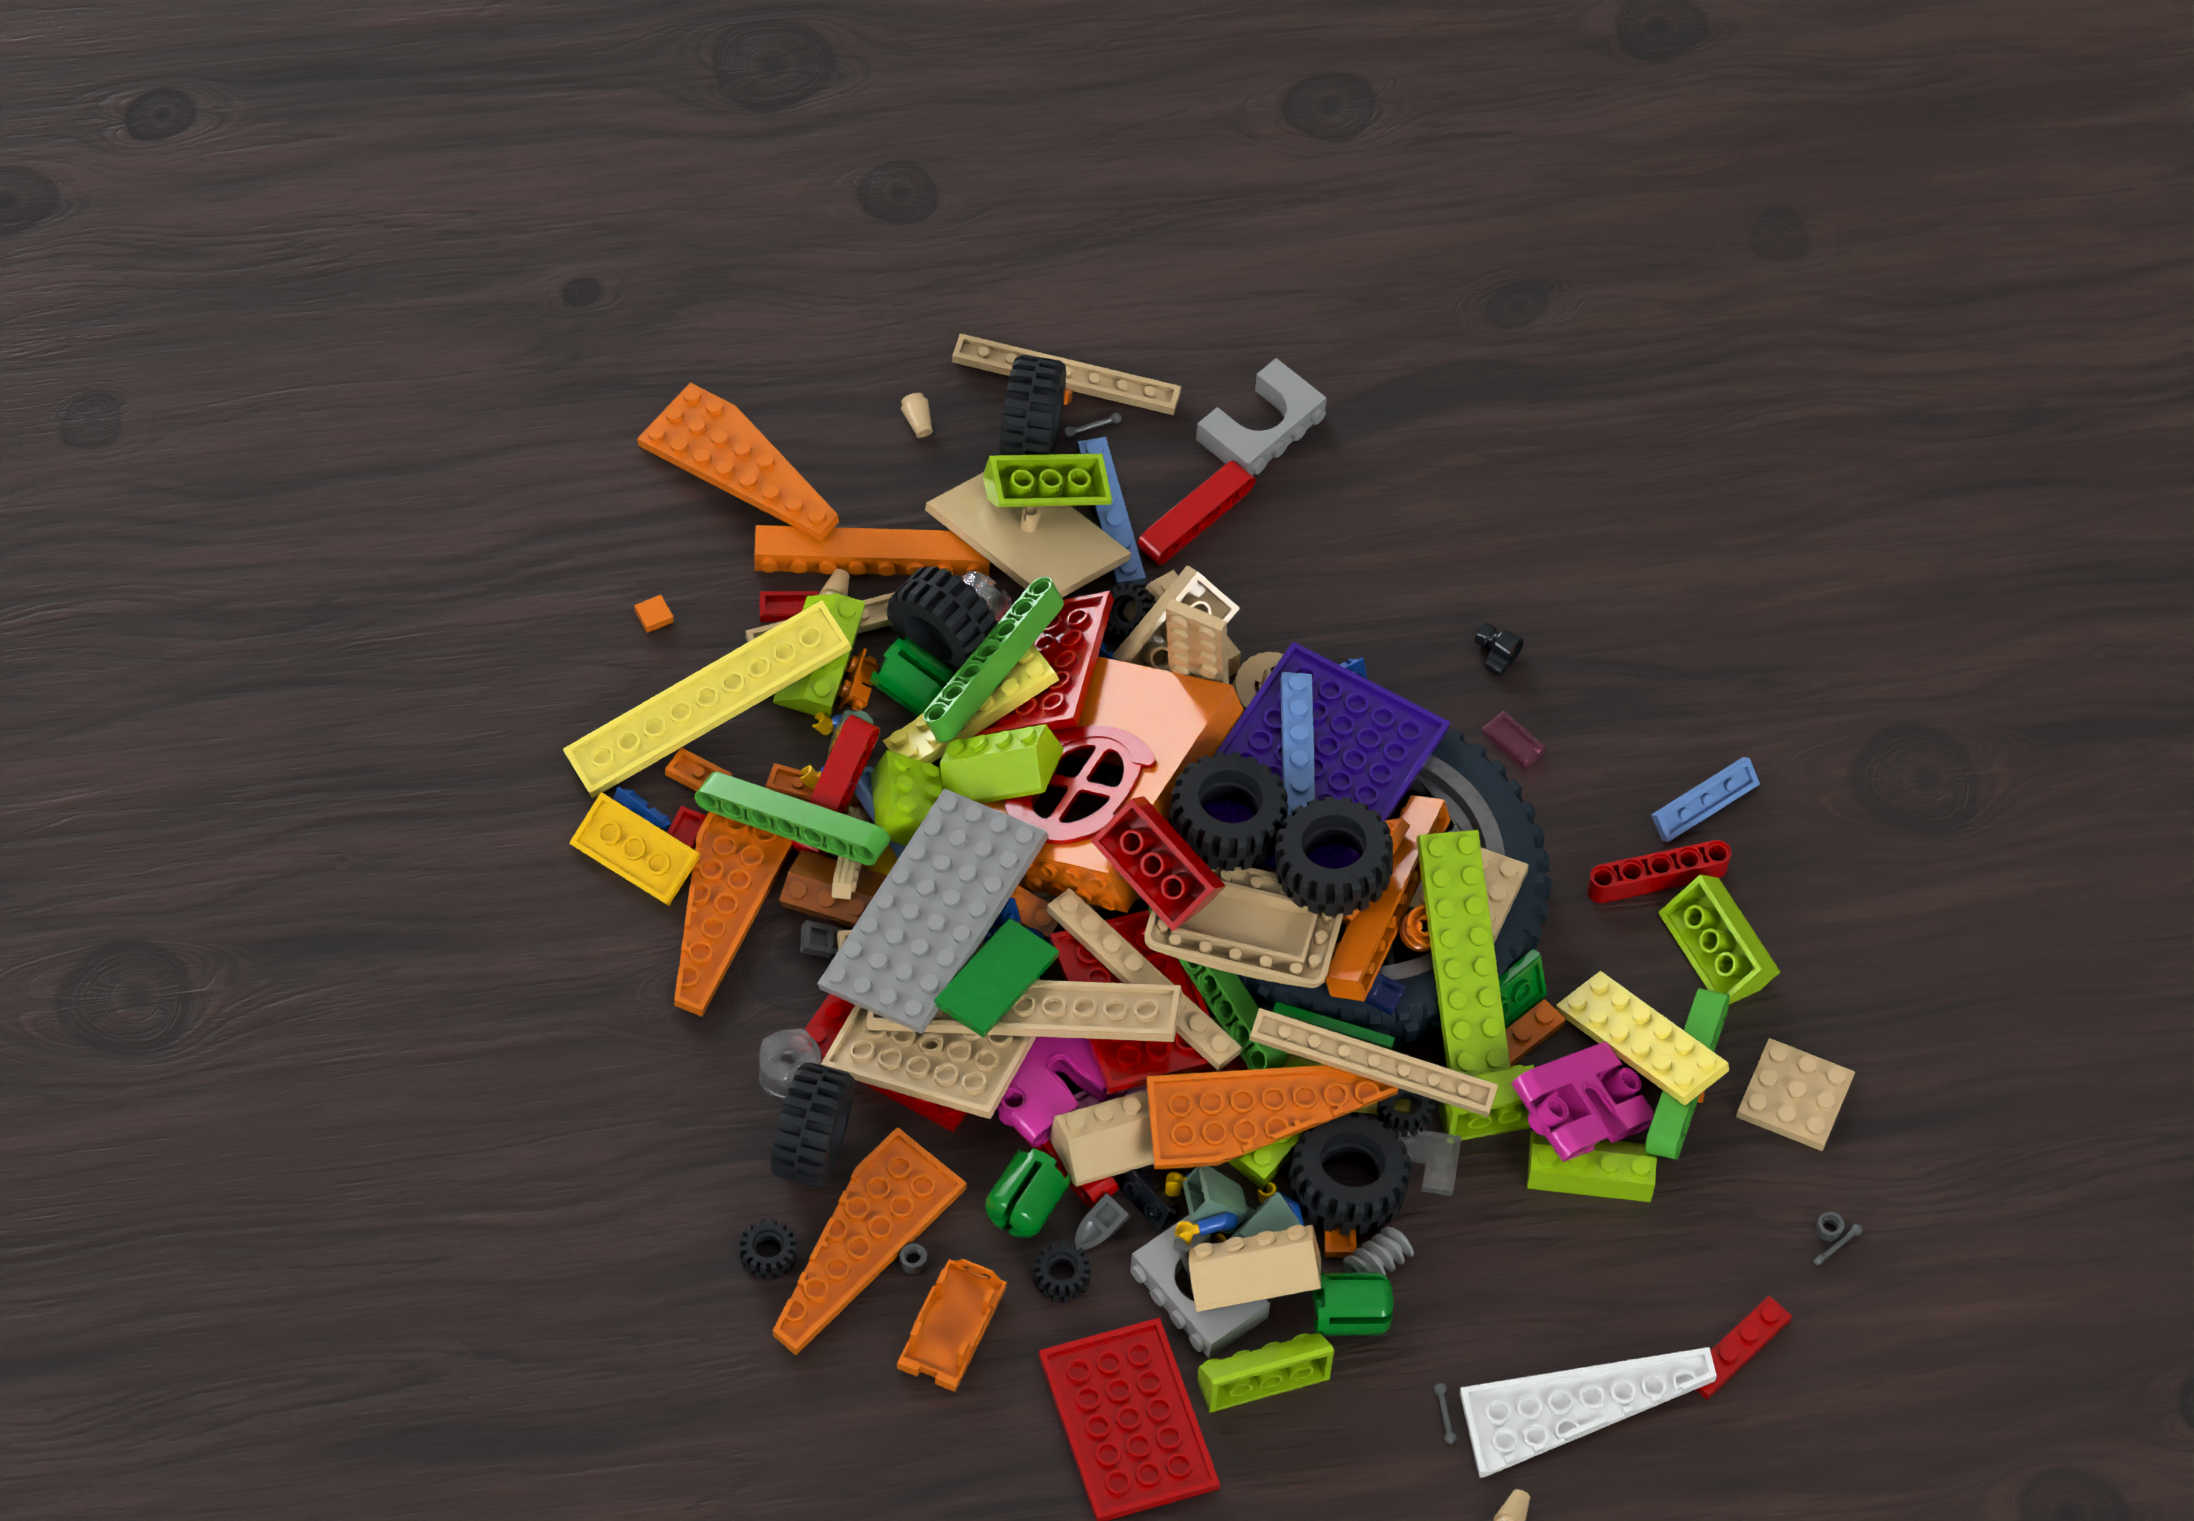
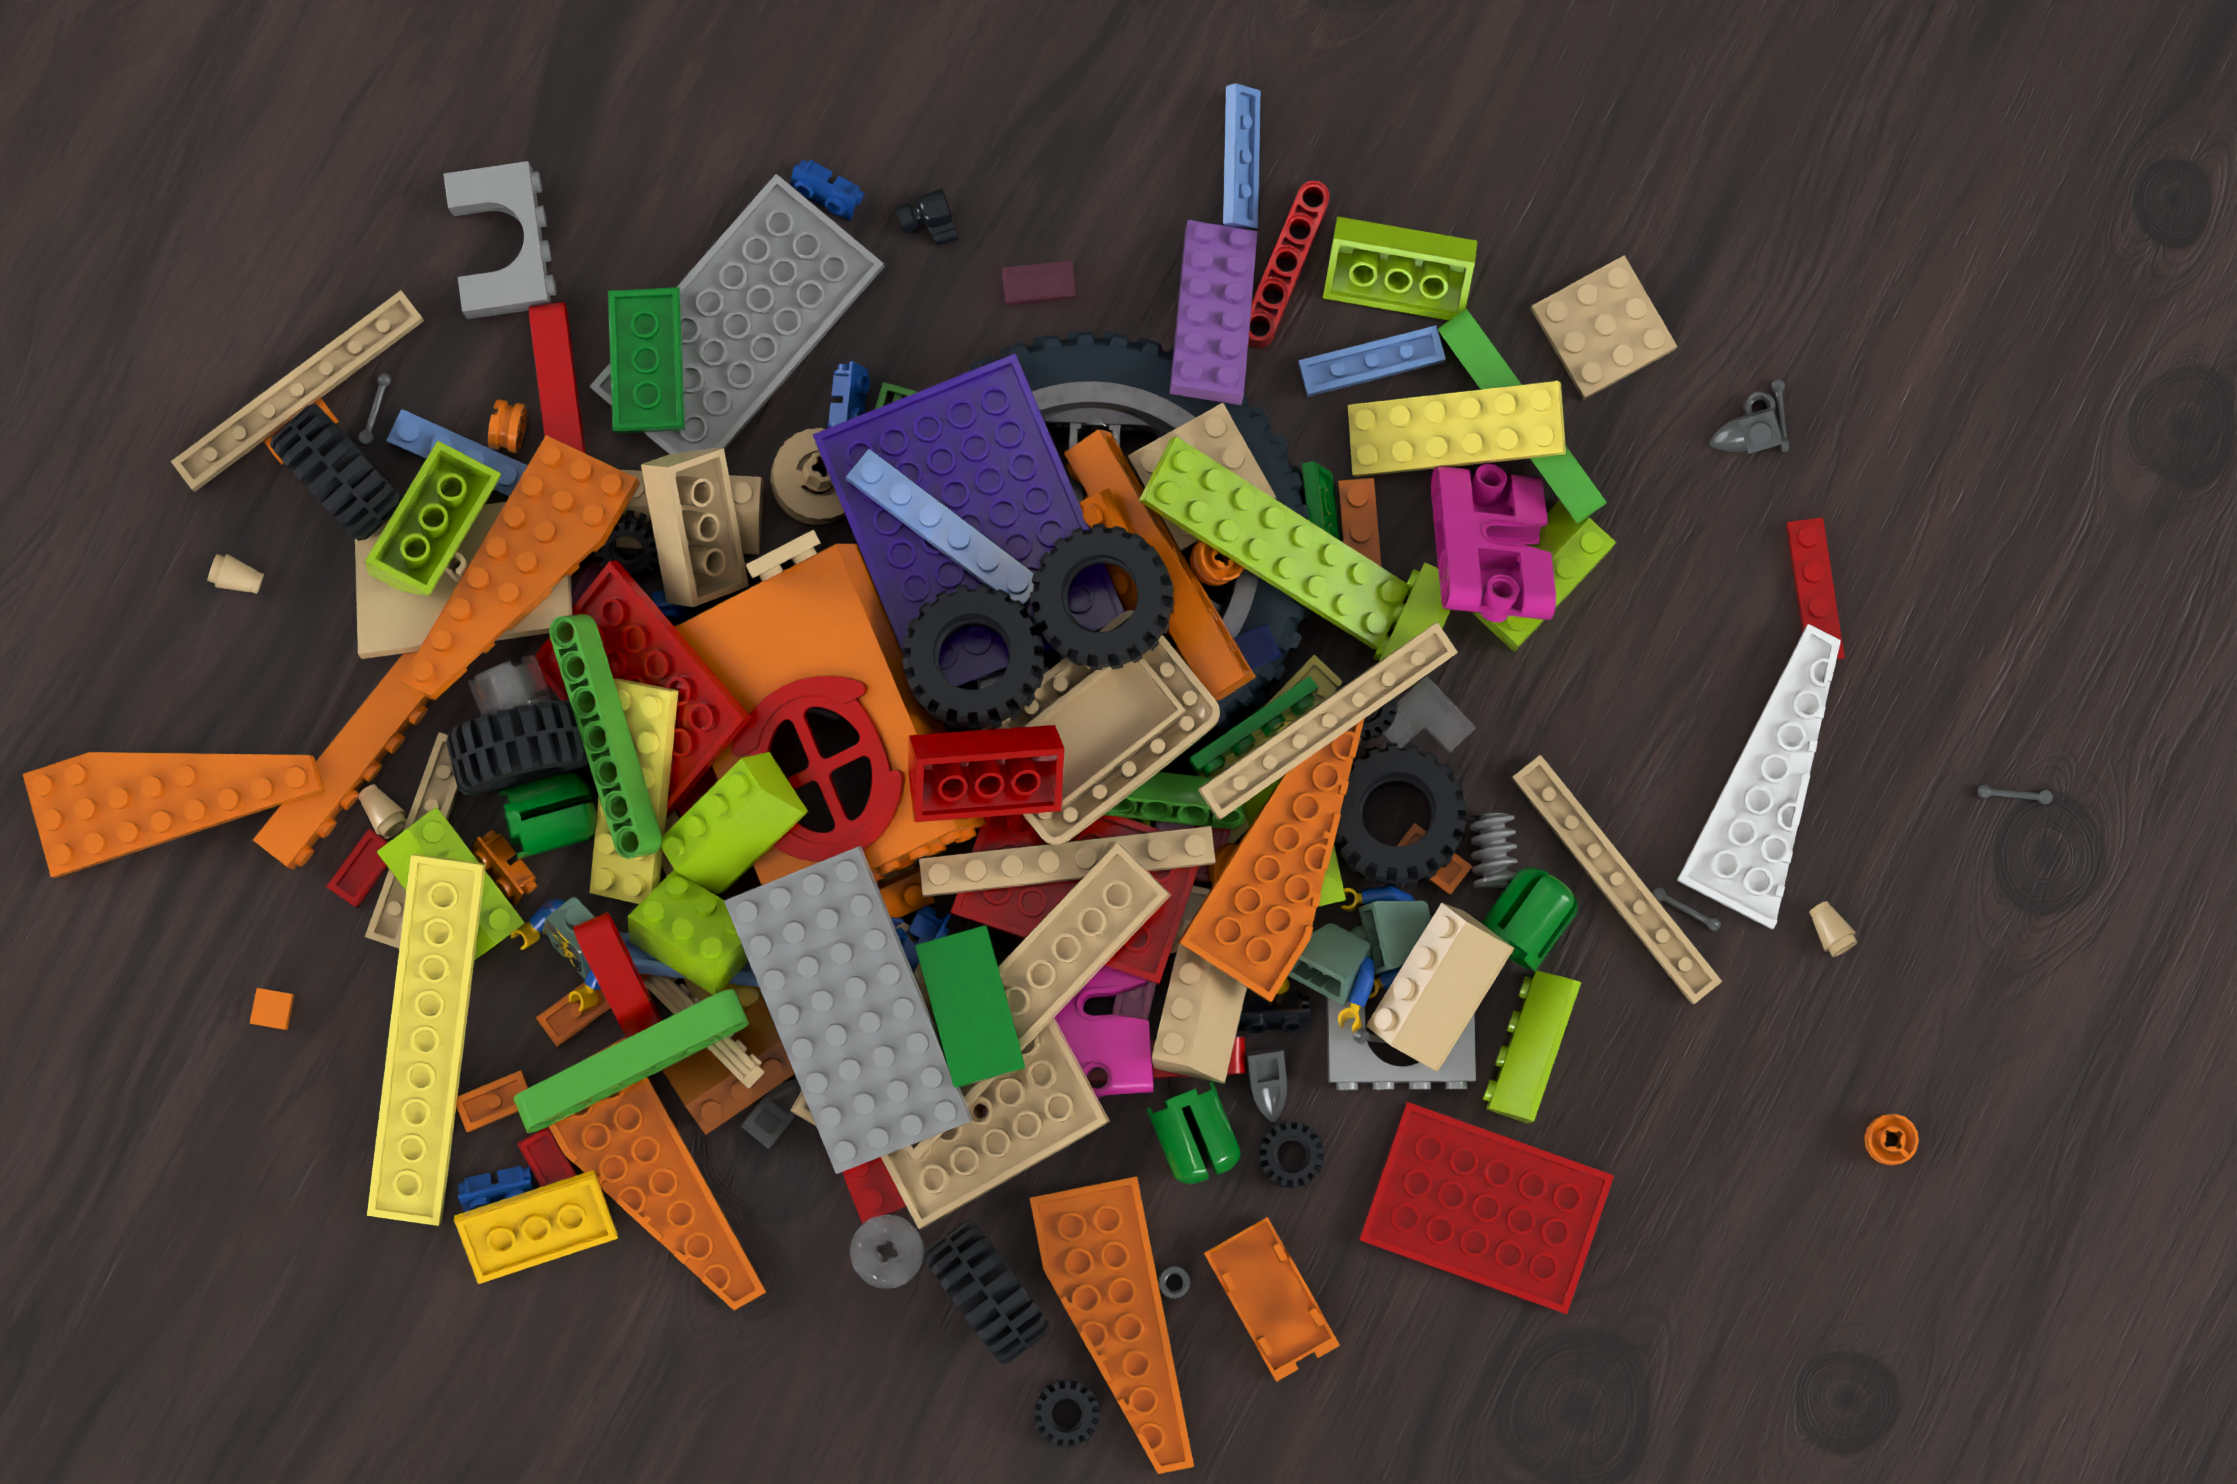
camera: 50 degrees left, 25 degrees up
(1106, 549) = (545, 529): none -> orange wing
(1146, 498) = (507, 426): none -> orange wheel
(1258, 545) = (646, 360): none -> green tile
(1332, 585) = (757, 312): none -> light grey plate
(1426, 1352) = (1616, 880): none -> tan plate
(1460, 568) = (812, 183): none -> blue hinge
(1585, 835) = (1214, 312): none -> medium lavender plate
(1642, 966) = (1371, 361): none -> medium blue plate
(1807, 1229) = (1749, 433): none -> dark grey plate

